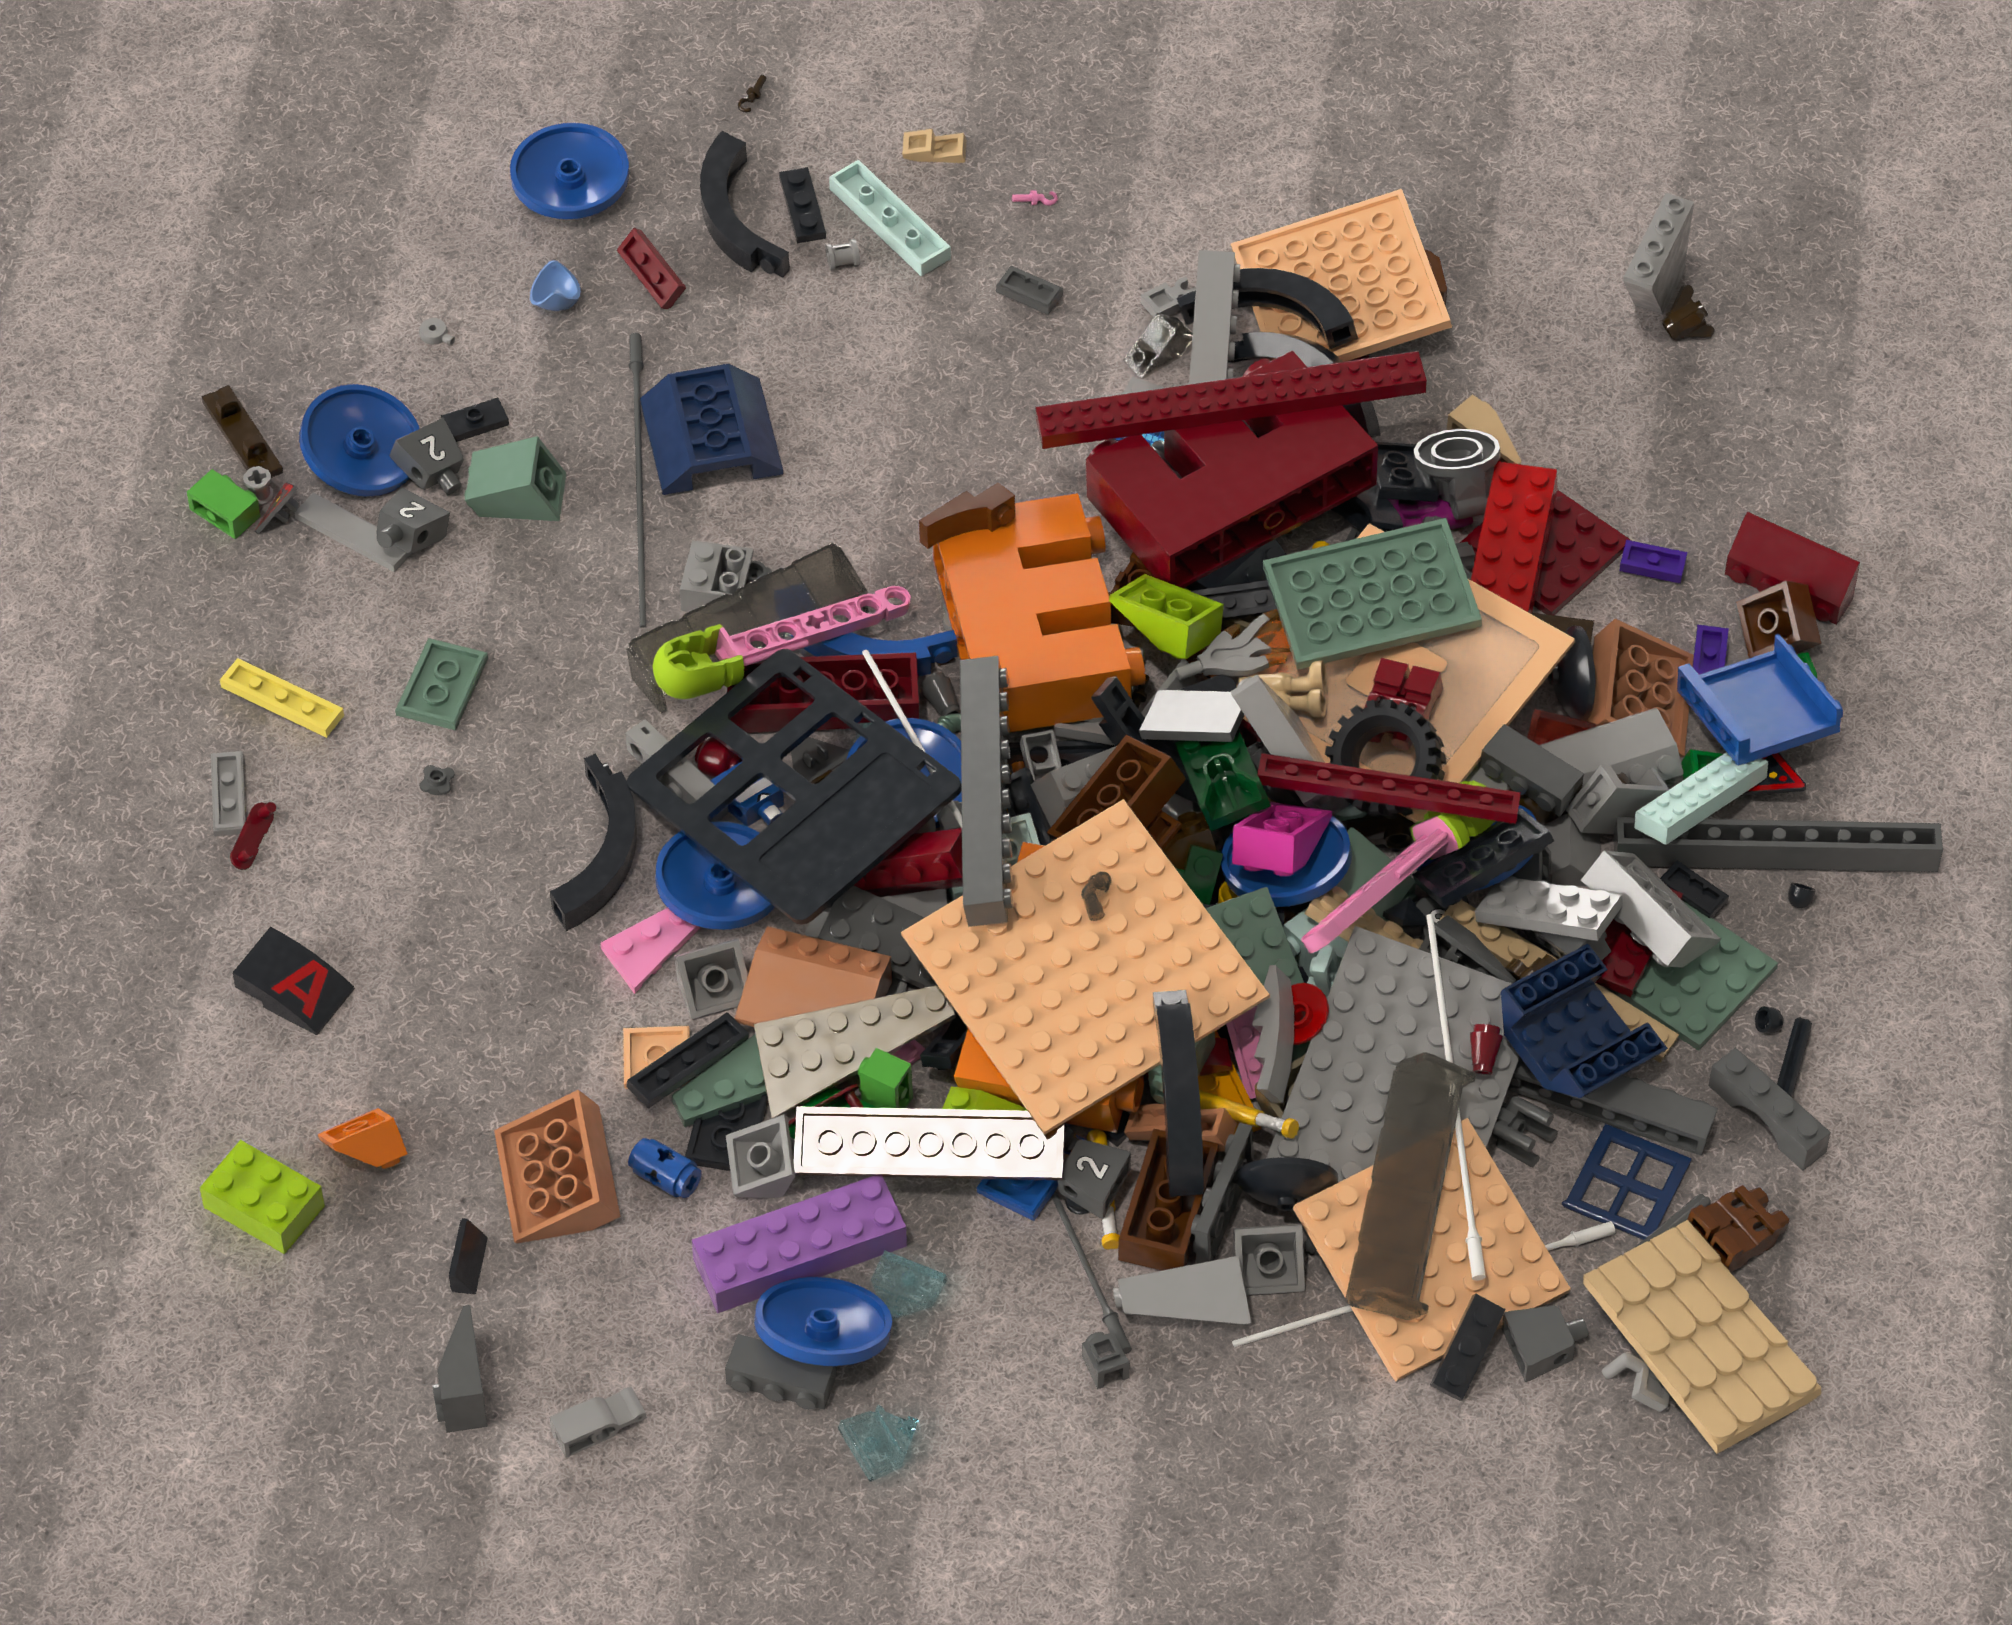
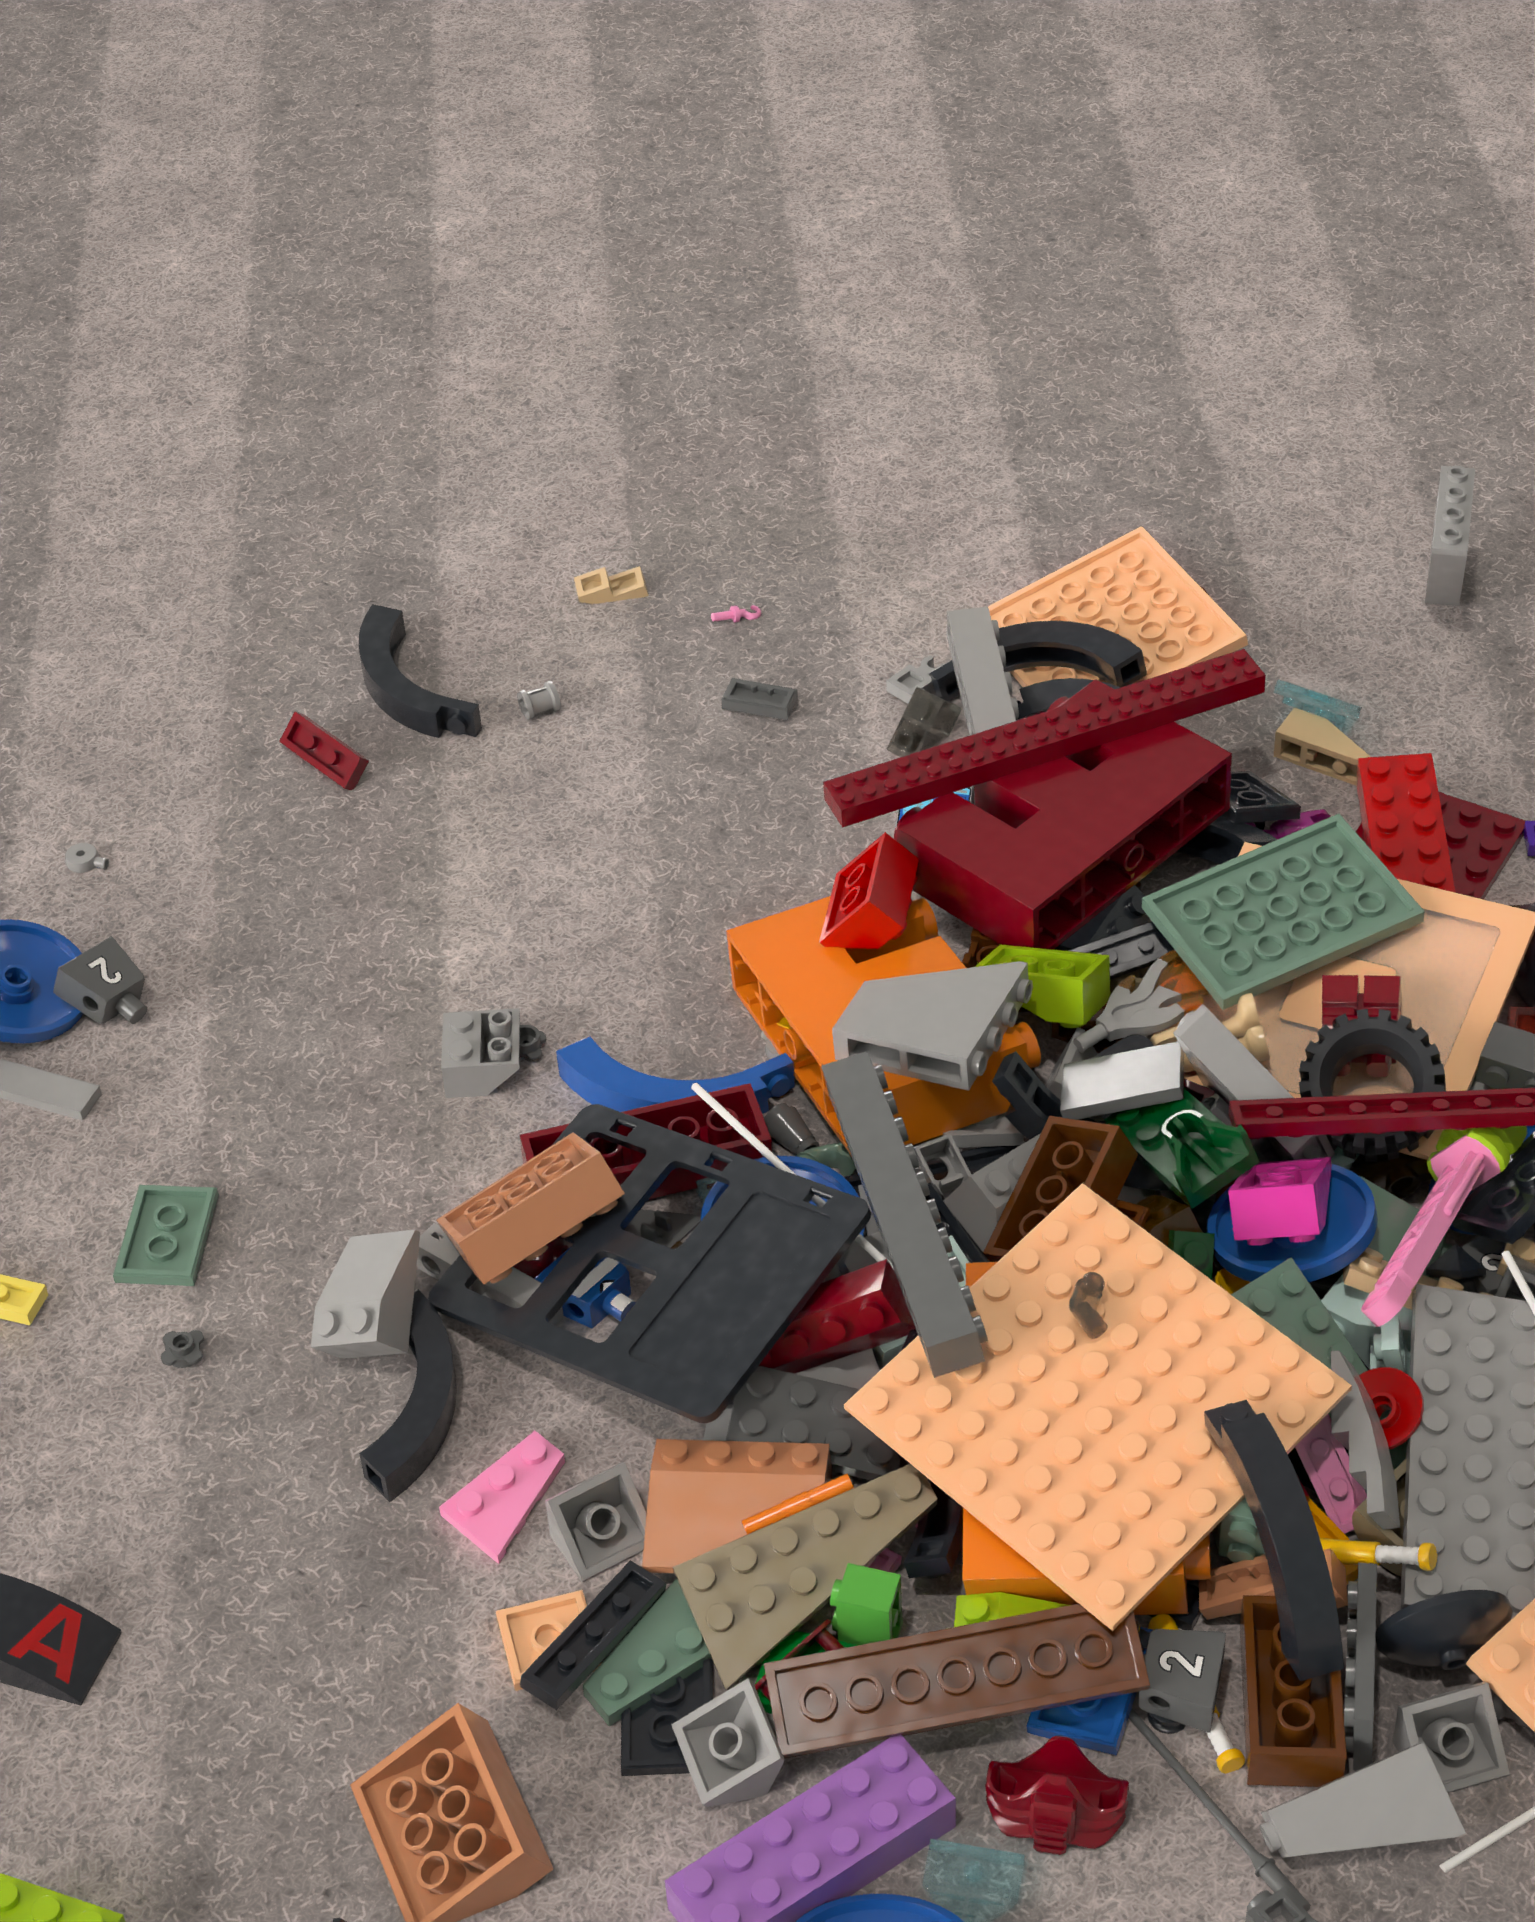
camera: 10 degrees left, 10 degrees down
(368, 1138) = (178, 1833): orange slope -> none
(411, 522) = (93, 1058): dark grey torso -> none
(476, 419) = (154, 937): black plate -> none
(516, 482) = (213, 992): sand green slope -> none
(555, 288) = (216, 788): medium blue helmet -> none
(569, 171) = (208, 671): blue dish -> none
(582, 770) = (369, 1297): none -> light grey slope
(636, 365) = (329, 850): dark grey piece -> none
(676, 1175) = (619, 1794): blue piece -> none
(684, 664) = (477, 1153): piece -> none
(704, 889) = (564, 1410): blue dish -> none
(708, 424) = (426, 890): dark blue slope -> none
(716, 726) = (531, 1208): none -> nougat slope
(752, 92) = (395, 570): dark brown hand -> none
(802, 205) = (479, 664): black plate -> none
(803, 586) = (527, 1092): clear smoke piece -> none
(854, 996) = (798, 1503): none -> orange piece
(890, 218) = (582, 658): light aqua piece -> none
(967, 514) = (772, 916): reddish brown slope -> none
(979, 1241) = (1056, 1798): none -> dark red piece
(1051, 513) = (871, 897): none -> red slope
(1062, 638) = (934, 1022): none -> light grey slope
(1458, 467) = (1317, 774): dark grey piece -> none
(1496, 389) = (1308, 699): none -> clear light blue plate
(1687, 317) = (1490, 598): dark brown rock -> none

